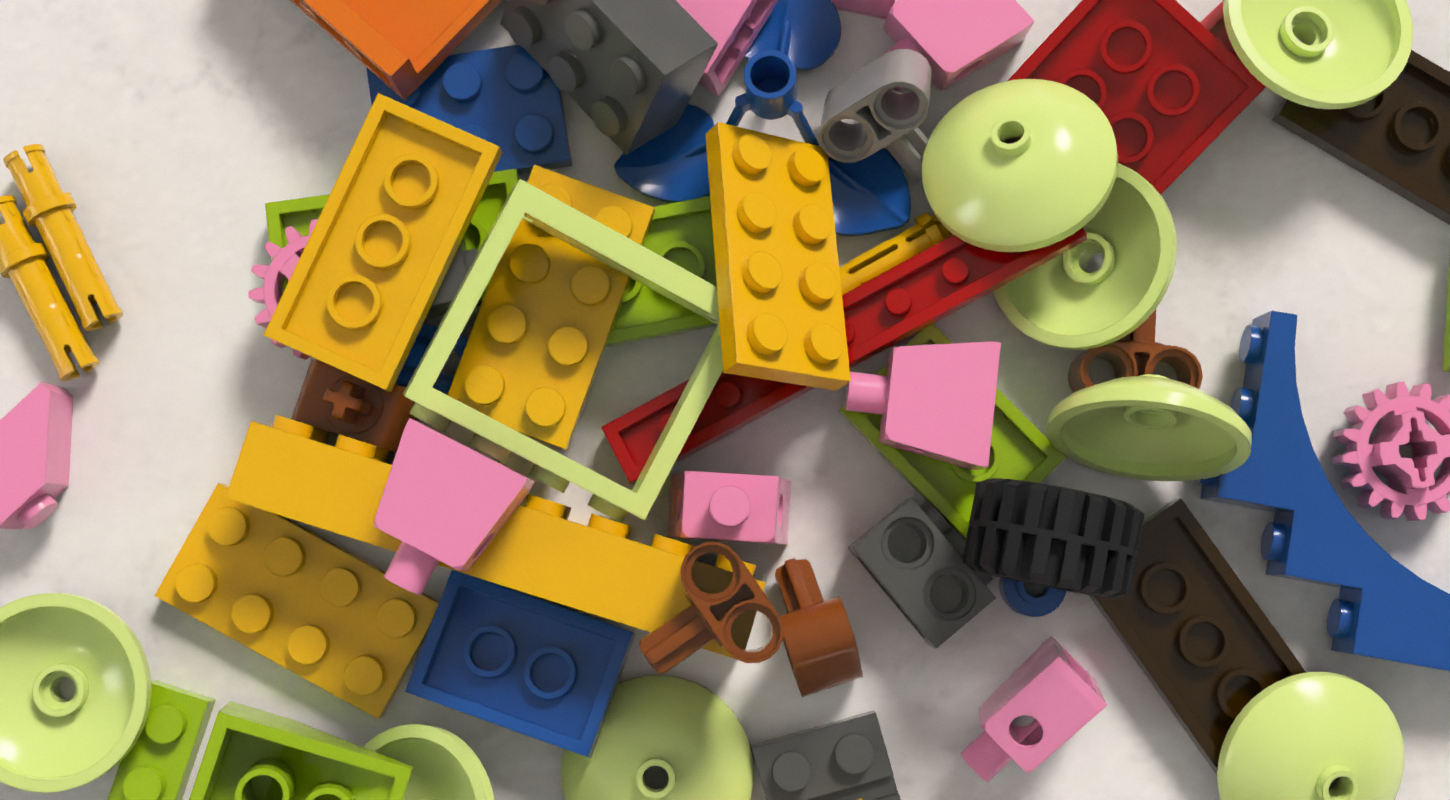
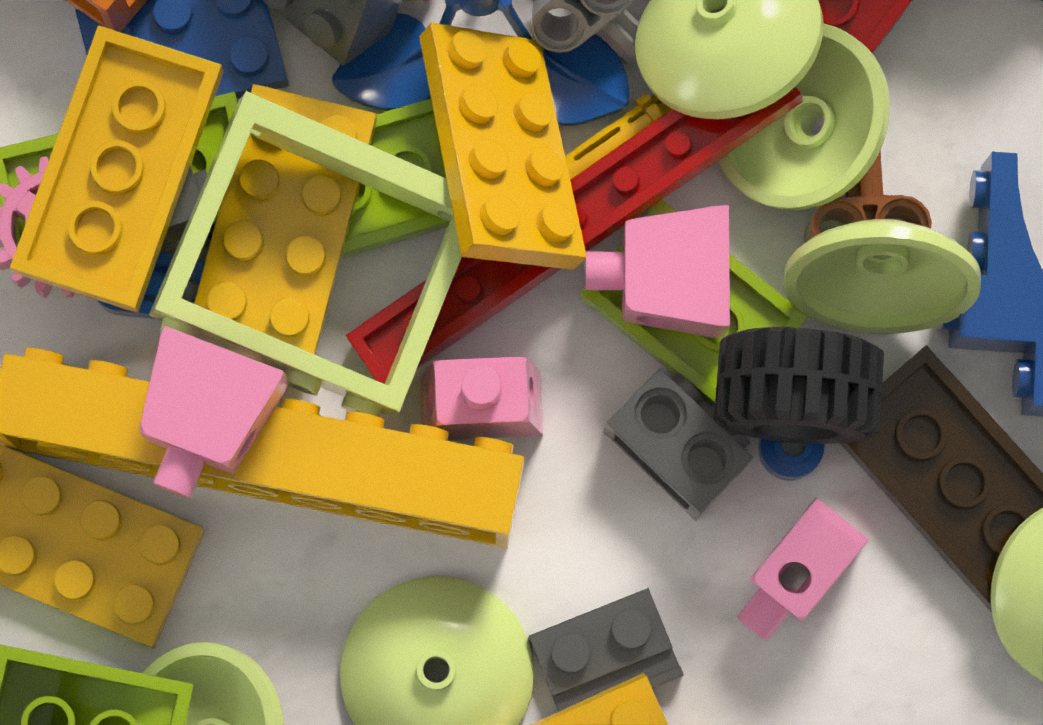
camera: 10 degrees left, 5 degrees down
(352, 406) = (101, 333): dark orange beam -> none
(521, 663) = (289, 574): blue plate -> none
(712, 616) = (476, 485): dark orange beam -> none
(815, 631) = (580, 513): dark orange beam -> none

